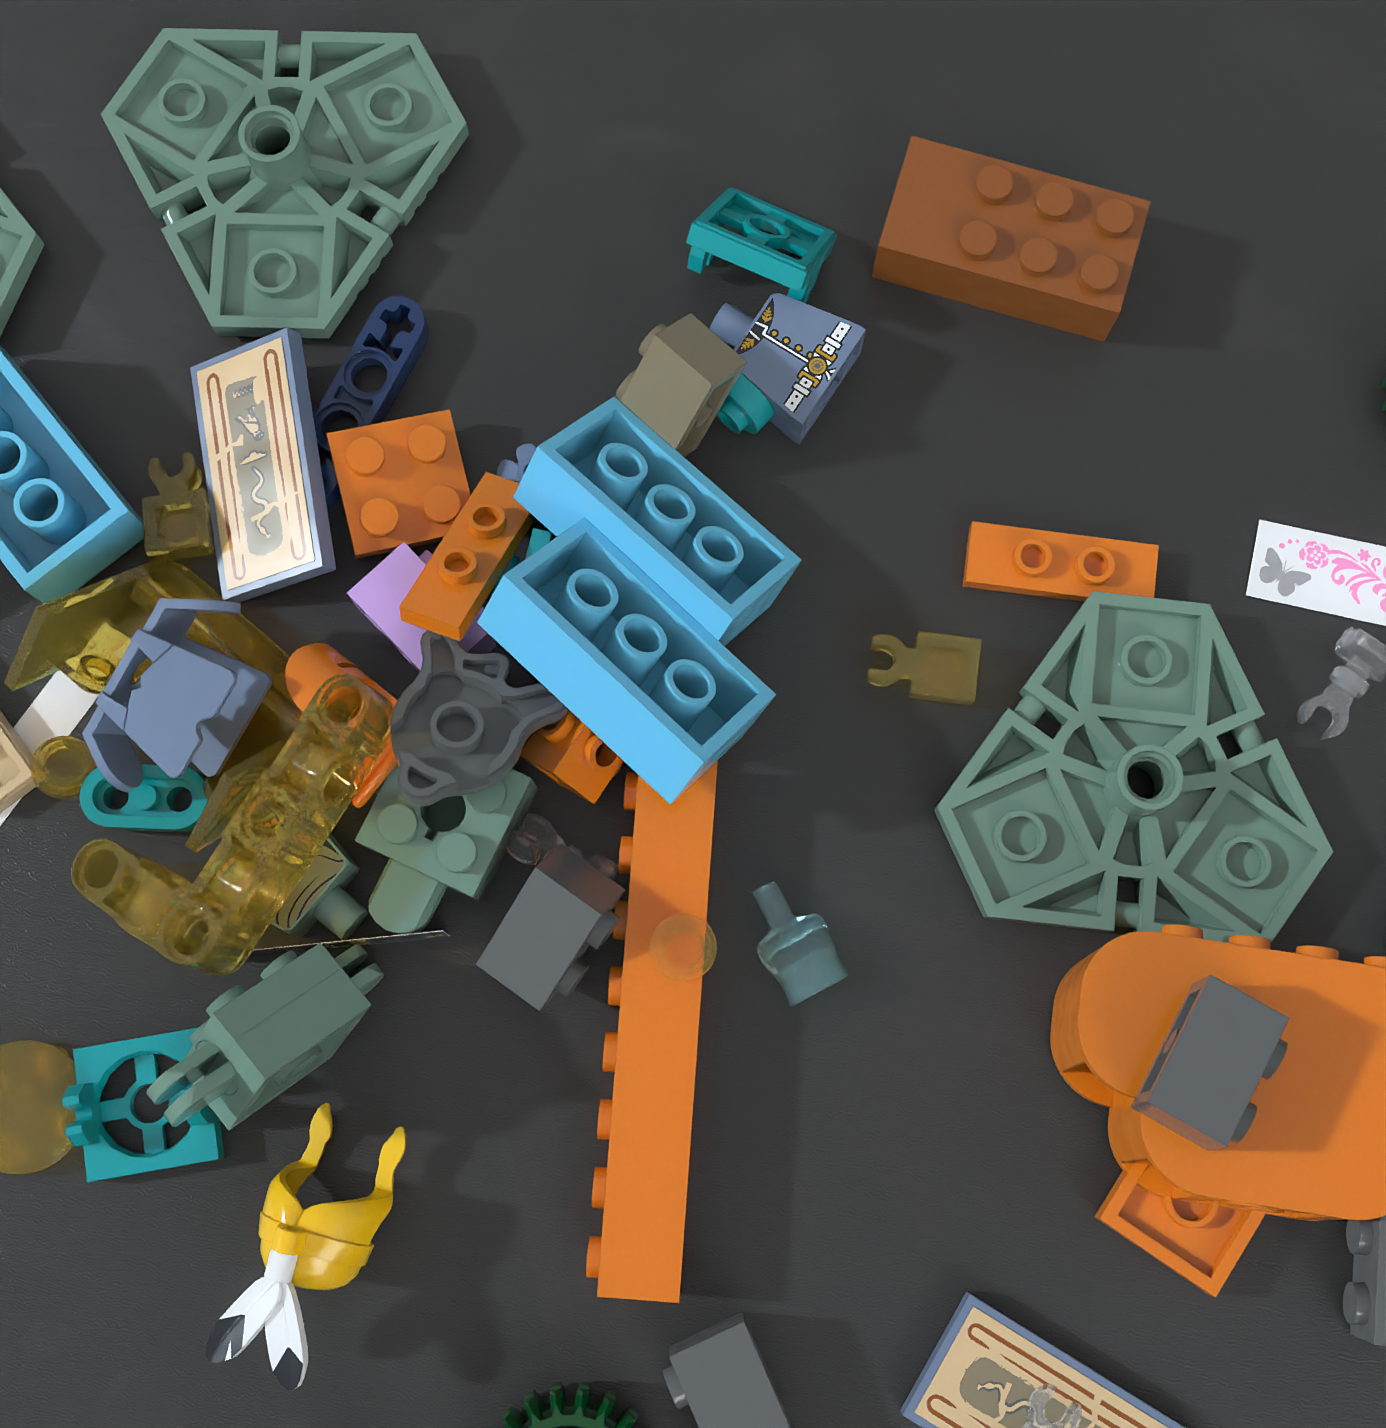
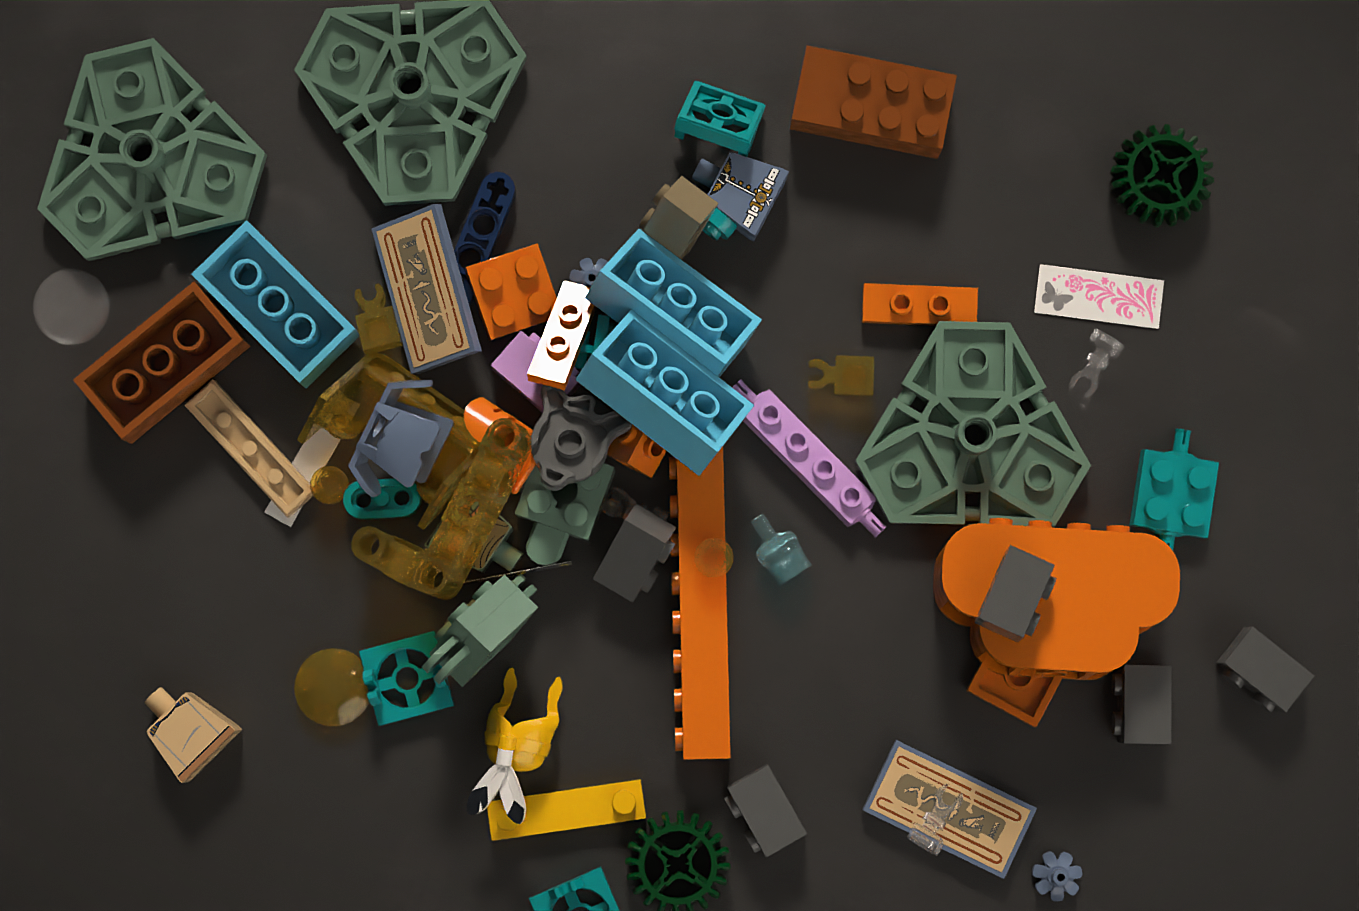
camera: 10 degrees left, 5 degrees up
(401, 1361) = (570, 810): none -> yellow plate
(862, 801) = (810, 459): none -> lavender plate

